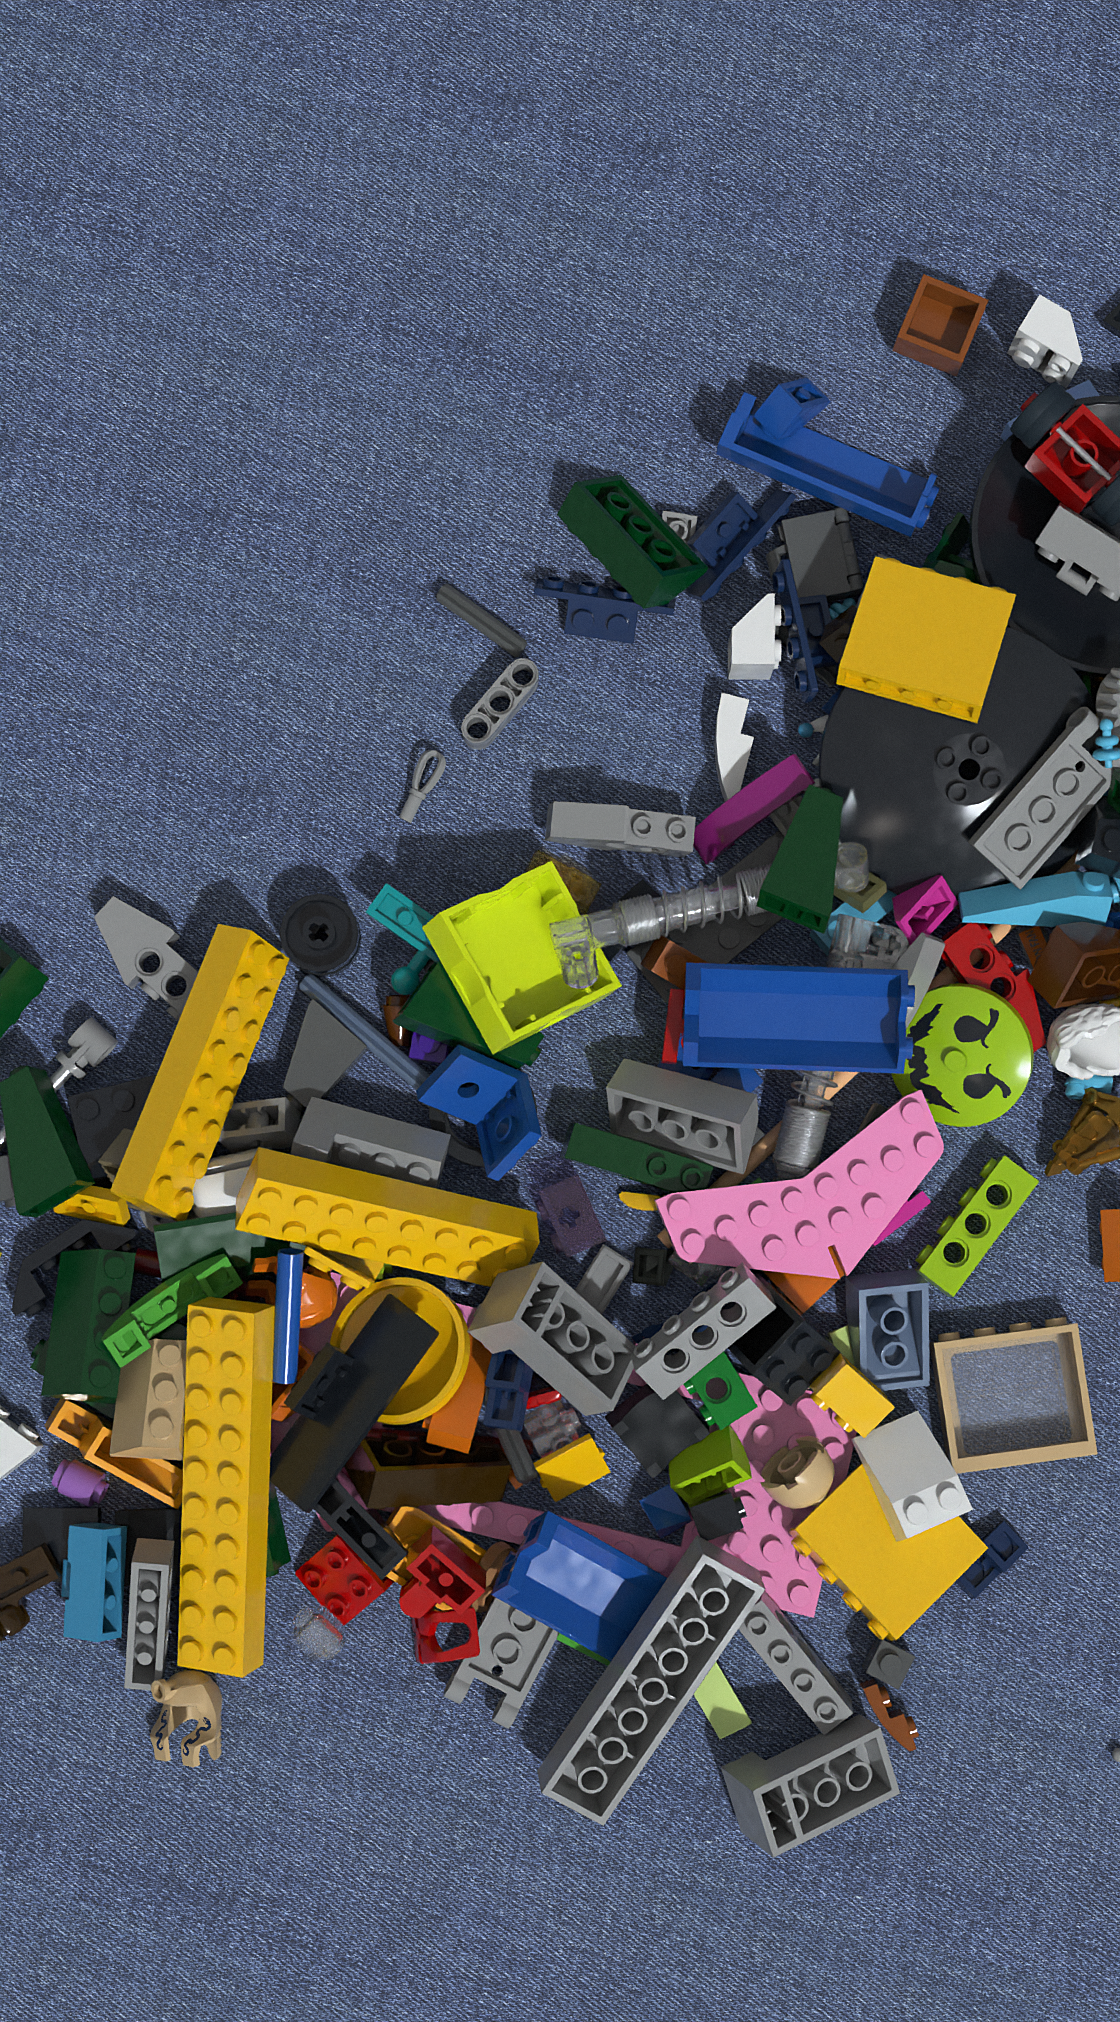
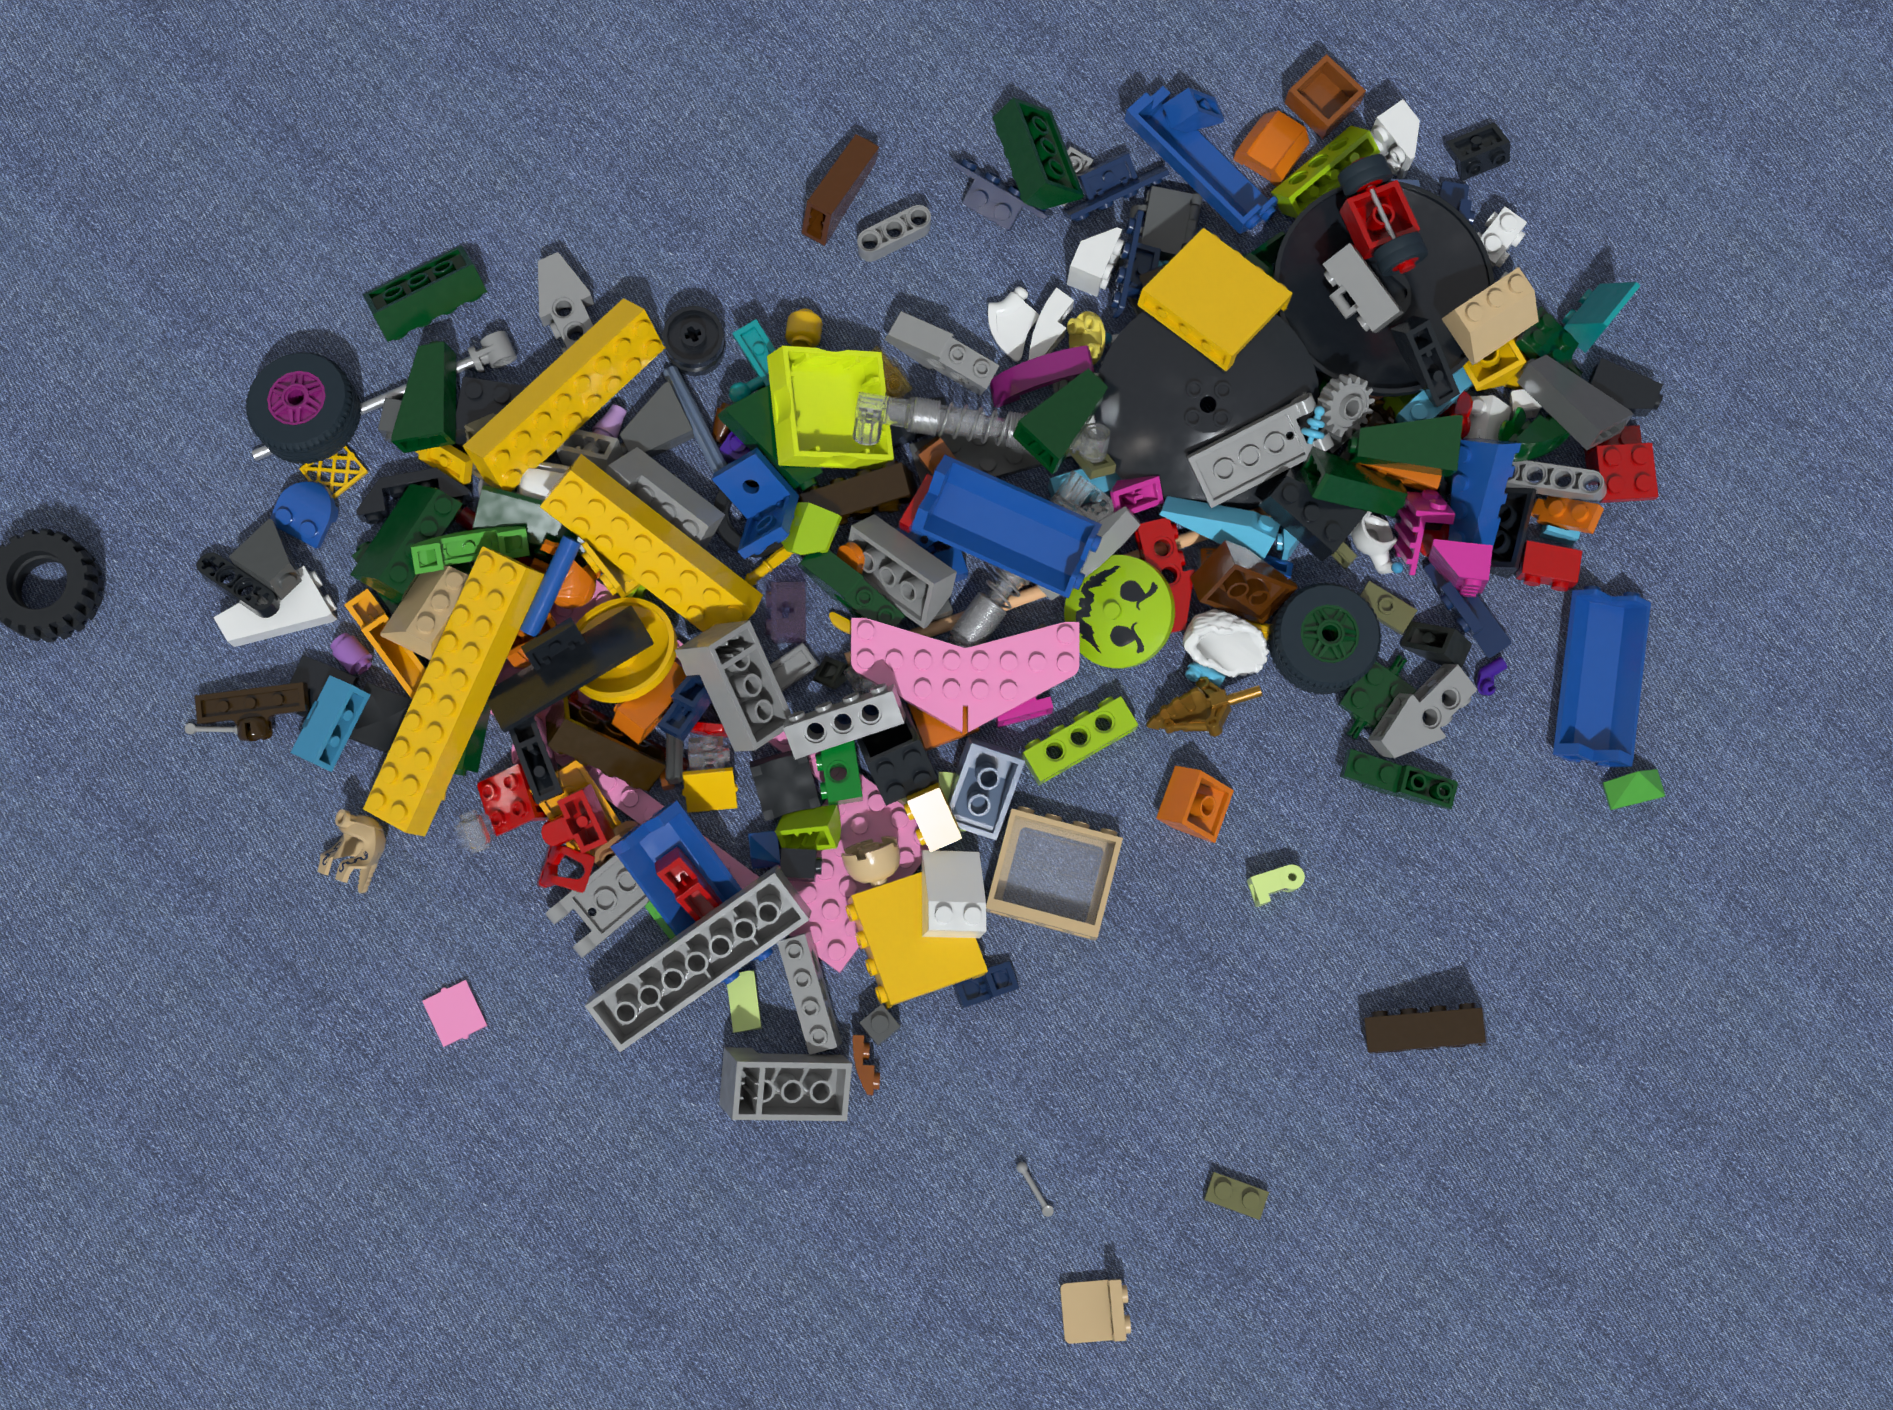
camera: 15 degrees right, 5 degrees down
(148, 1613) = (358, 760): light grey brick -> none
(264, 1077) = (611, 422): none -> lavender cone
(387, 1853) = (454, 1013): none -> bright pink piece
(413, 677) = (838, 189): none -> reddish brown slope
(417, 795) = (807, 273): light grey piece -> none
(444, 867) = (803, 328): none -> yellow head
(481, 620) = (906, 170): dark grey axle -> none
(522, 1169) = (767, 566): none -> yellow piece
(562, 1112) = (811, 529): none -> lime slope
(595, 1044) = (867, 492): none -> dark brown wedge
(599, 1597) = (687, 884): none -> red slope
(620, 1121) = (852, 555): none -> orange tile
(683, 754) = (1011, 322): none -> white arm
(781, 735) = (1089, 331): none -> light yellow dish
(902, 409) = (1273, 146): none -> orange slope
(979, 417) = (1322, 170): none -> lime brick

